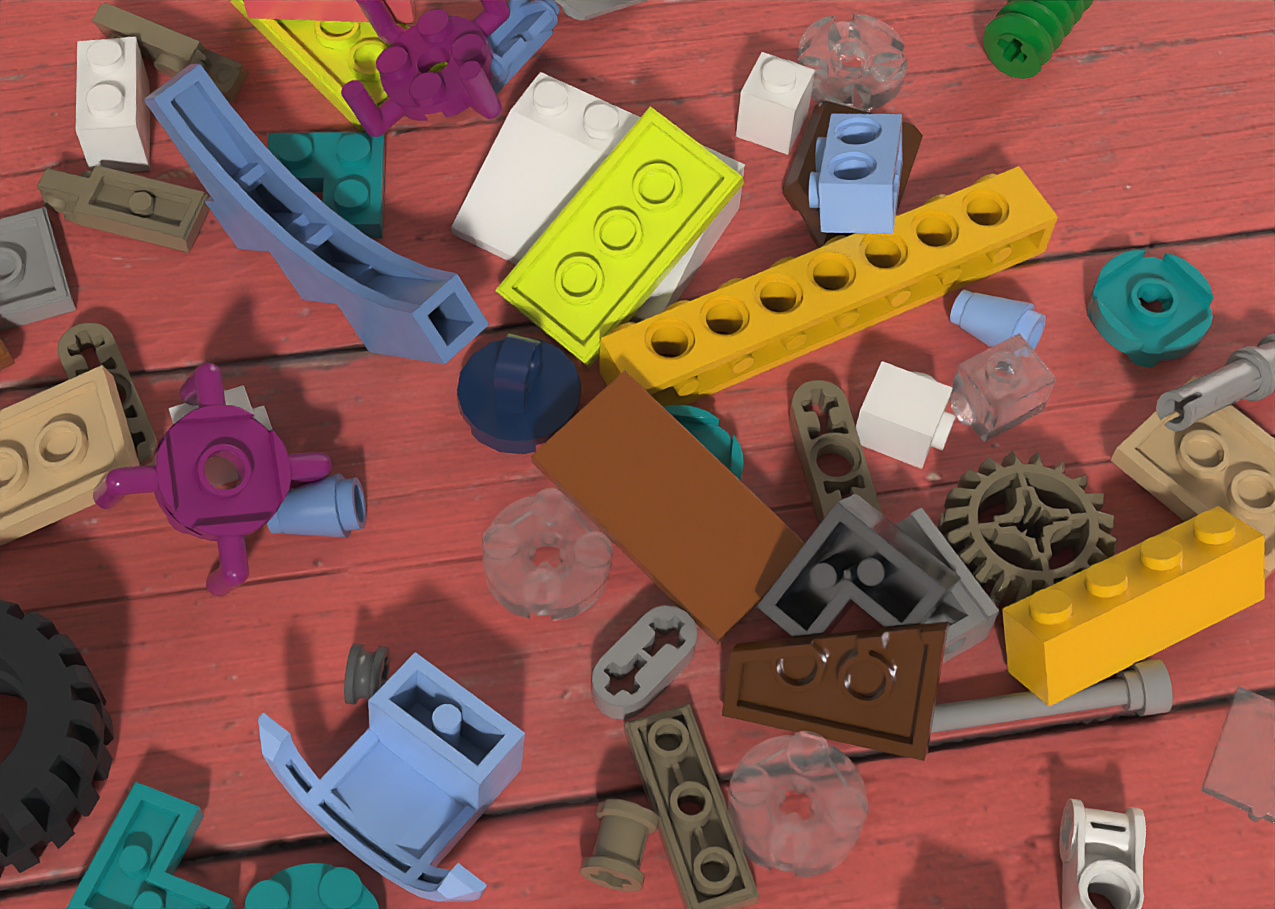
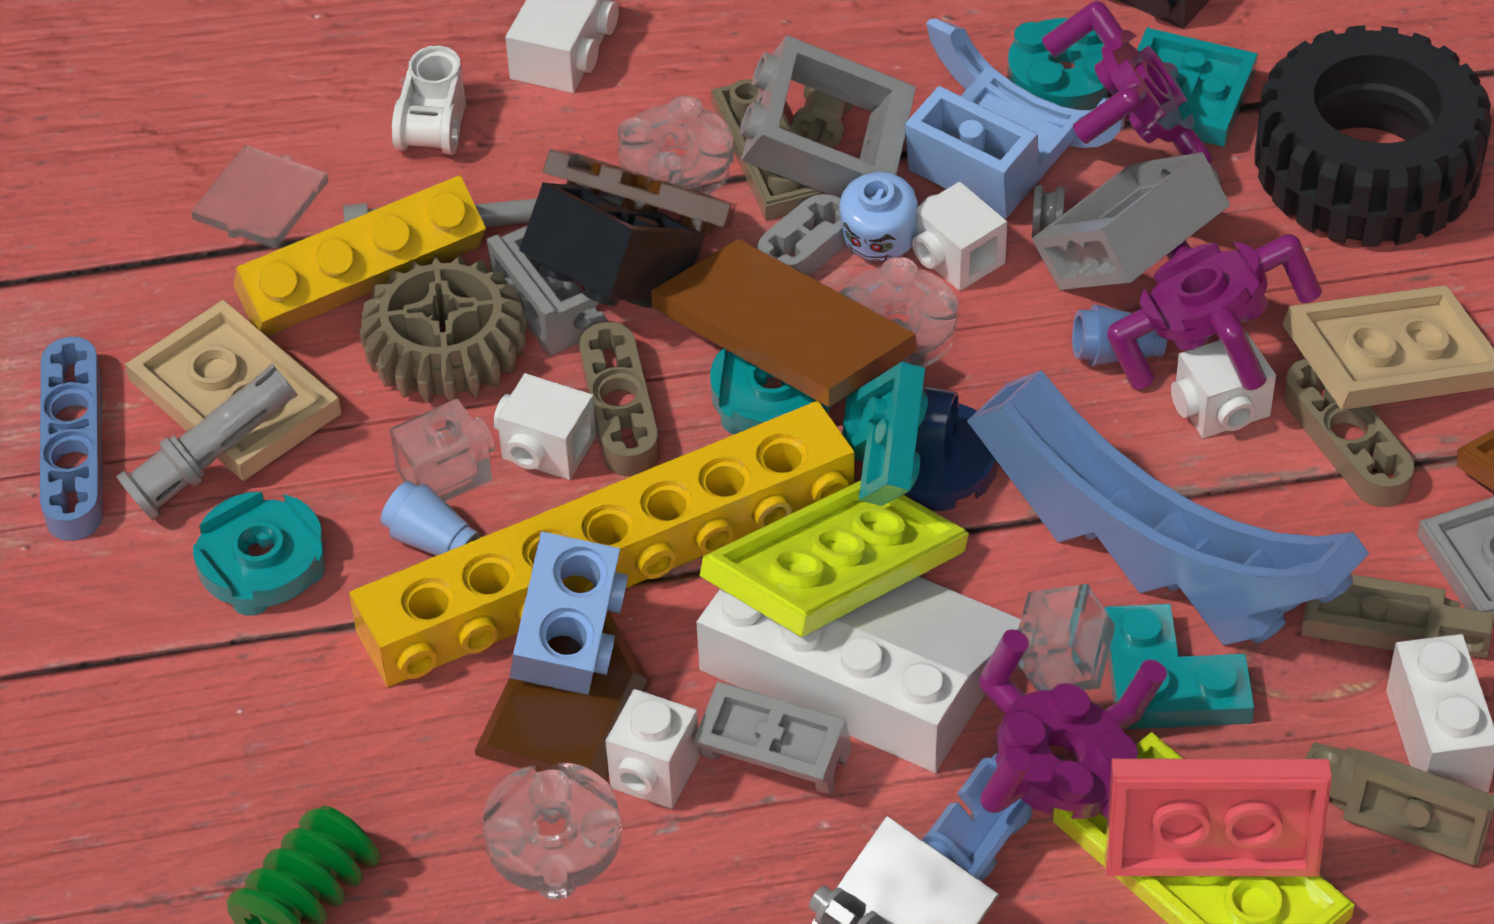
camera: 175 degrees left, 10 degrees down
(228, 761) = (1139, 80): none -> magenta plate
(338, 570) = (1131, 221): none -> light grey window
(424, 175) = (1066, 638): none -> clear brick
(474, 638) = (959, 236): none -> white brick
(560, 650) = (879, 216): none -> light blue head
(561, 332) = (883, 430): none -> teal plate
(565, 712) = (805, 159): none -> light grey window
(691, 101) = (774, 735): none -> light grey hinge

